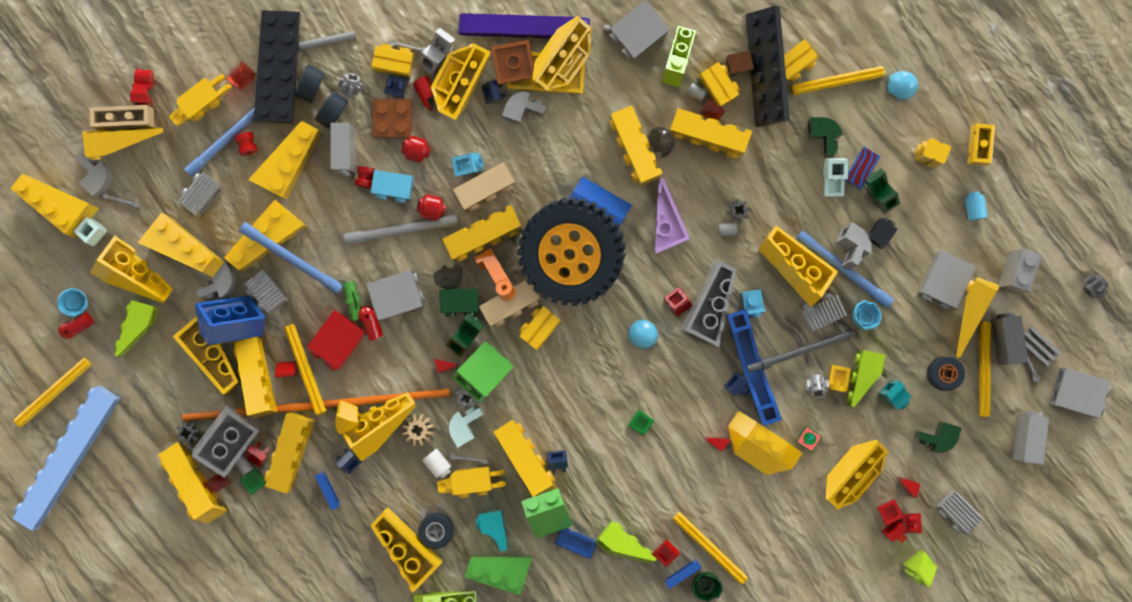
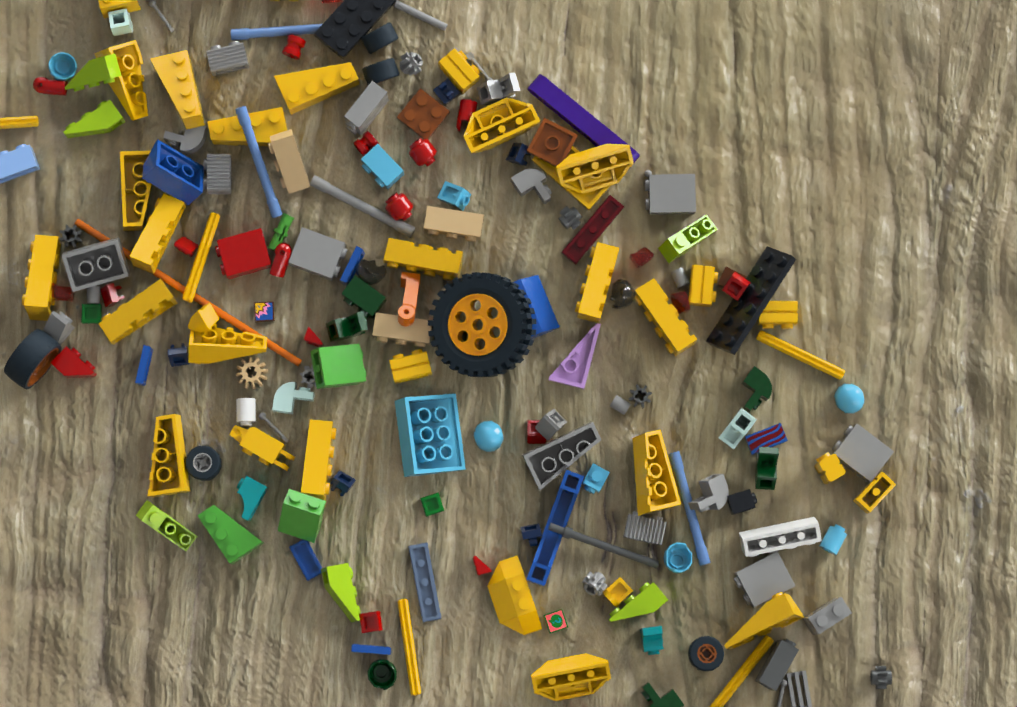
camera: 30 degrees right, 5 degrees down
(100, 287) = (94, 71): none -> lime slope
(234, 556) = (32, 359): none -> black wheel
(235, 513) = (59, 326): none -> light grey slope
(269, 534) = (71, 365): none -> red slope
(315, 239) = (289, 161): none -> tan brick
(389, 373) = (264, 311): none -> tile
(430, 284) = (350, 269): none -> blue tile
(573, 111) = (570, 217): none -> dark grey gear
(596, 370) = (429, 434): none -> medium azure slope
(598, 107) = (592, 229): none -> dark red tile
(653, 99) = (641, 257): none -> clear red slope
(683, 488) = (424, 582): none -> sand blue tile
(686, 287) = (550, 424): none -> light grey slope
(747, 64) = (736, 286): none -> red slope
(934, 237) = (780, 537): none -> white brick
(946, 121) = (862, 452): none -> light grey brick

